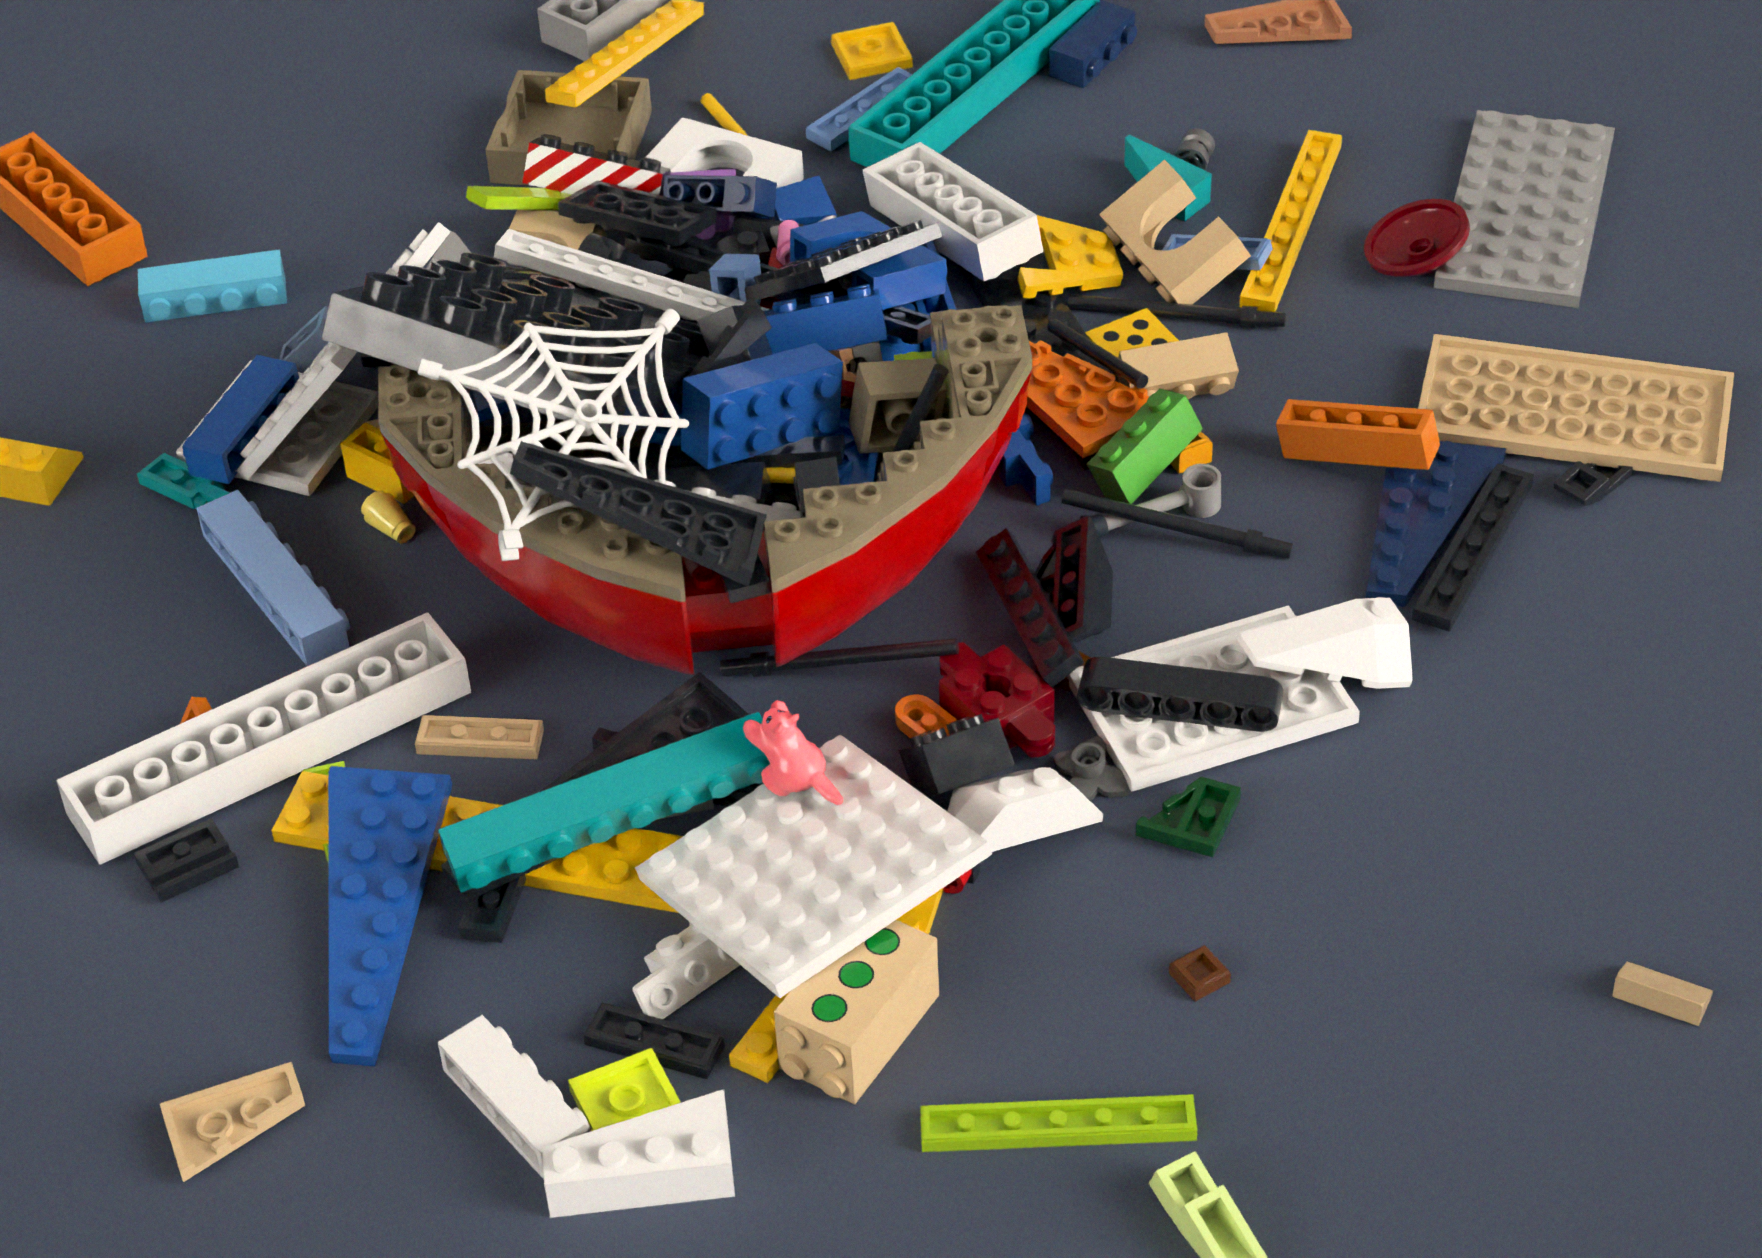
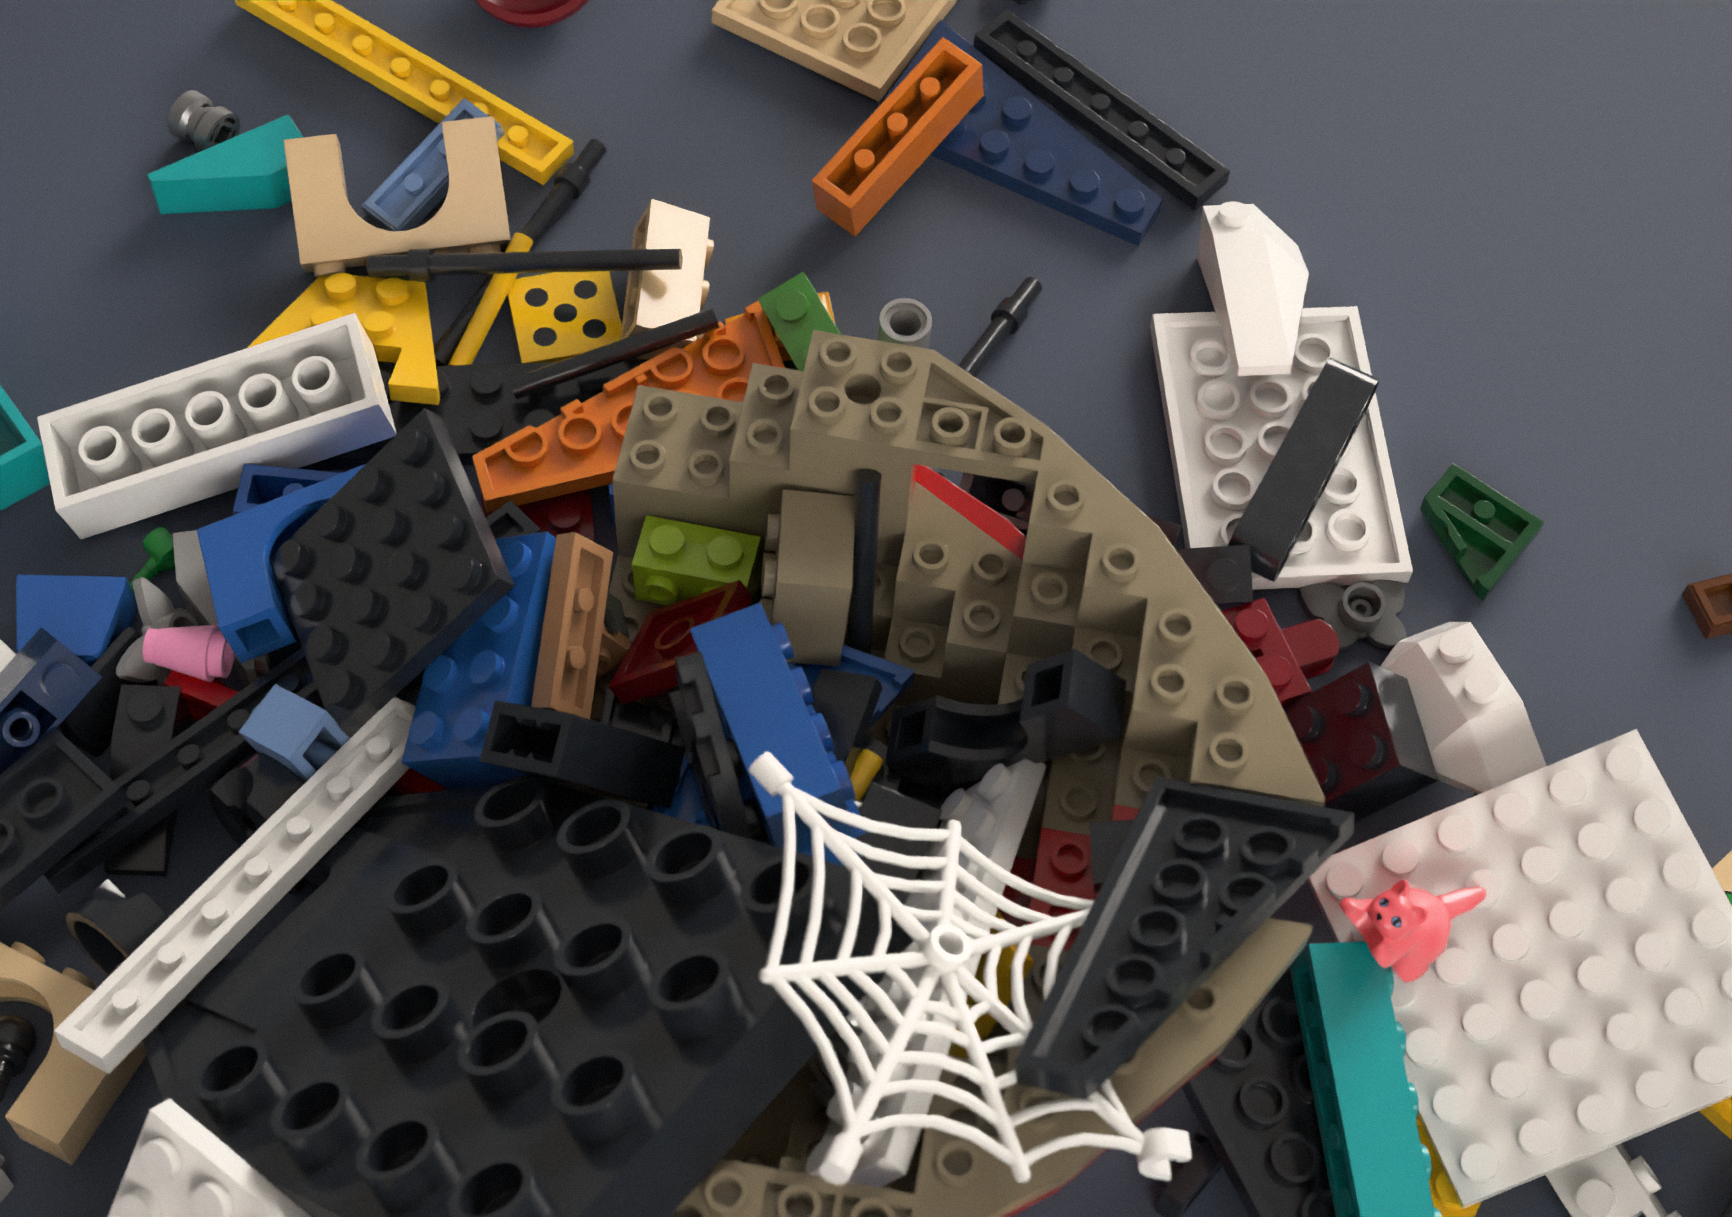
camera: 80 degrees left, 15 degrees up
(833, 329) = (572, 626): none -> medium nougat plate
(1124, 305) = (488, 308): none -> yellow bar
(1126, 262) = (424, 264): none -> black bar

